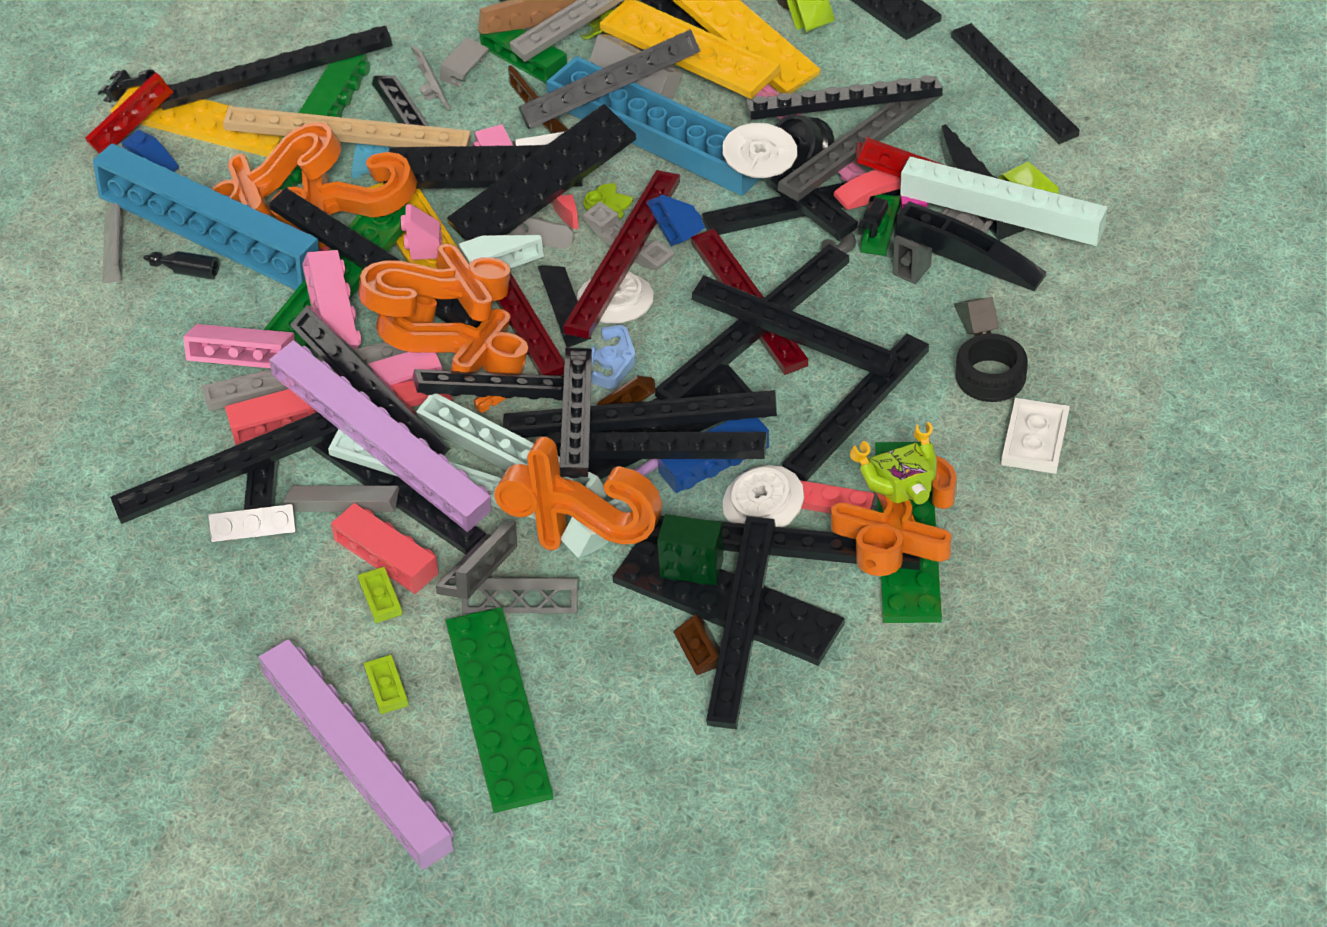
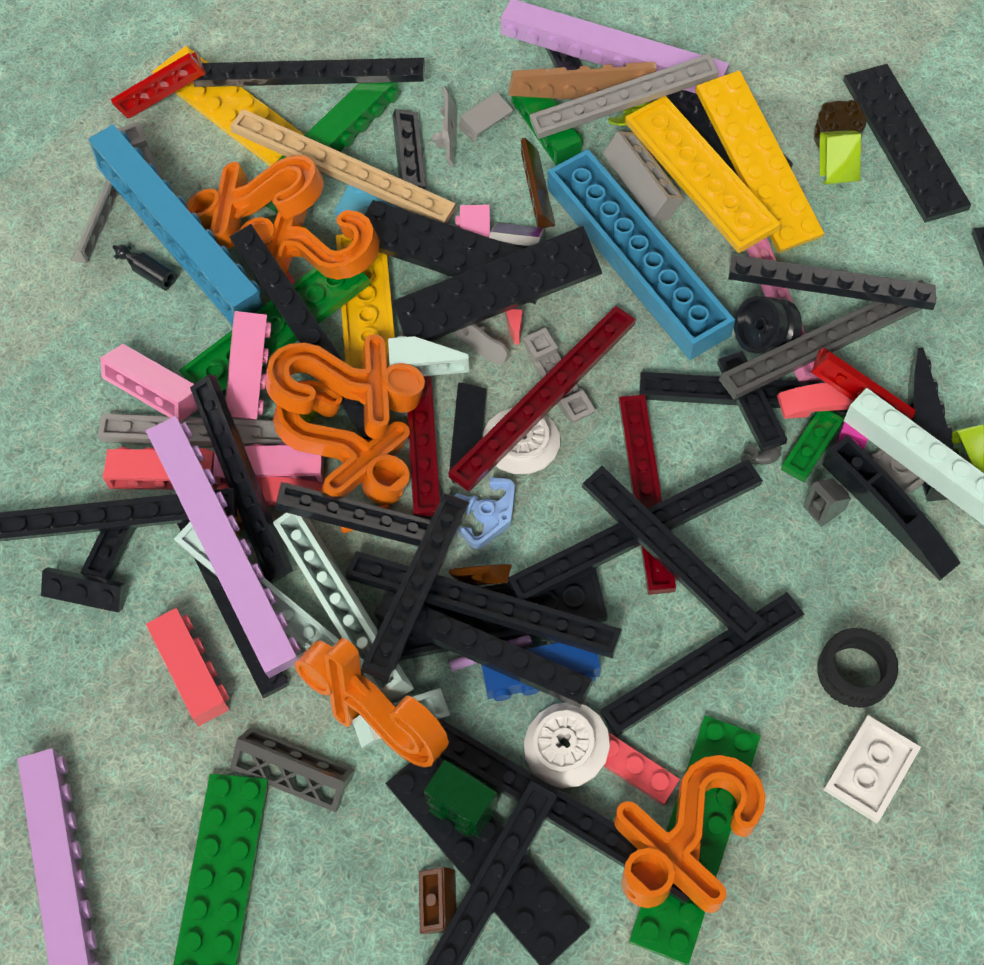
camera: 20 degrees right, 15 degrees up
(122, 82) = (174, 44): black bar -> none
(149, 148) = (163, 134): blue slope -> none
(341, 498) = (173, 591): light grey slope -> none
(379, 595) = (162, 719): lime plate -> none
(385, 684) = (124, 830): lime plate -> none
(422, 234) = (360, 313): bright pink slope -> none
(479, 562) = (260, 732): dark grey fence -> none
(607, 195) = (561, 323): lime plate -> none
(609, 79) = (606, 191): black plate -> none
(676, 218) = (610, 376): blue slope -> none
(759, 150) = (723, 311): white piece -> none
(873, 216) = (807, 437): black bar -> none
(900, 472) = (706, 793): lime torso -> none
(977, 315) = (868, 594): slope -> none

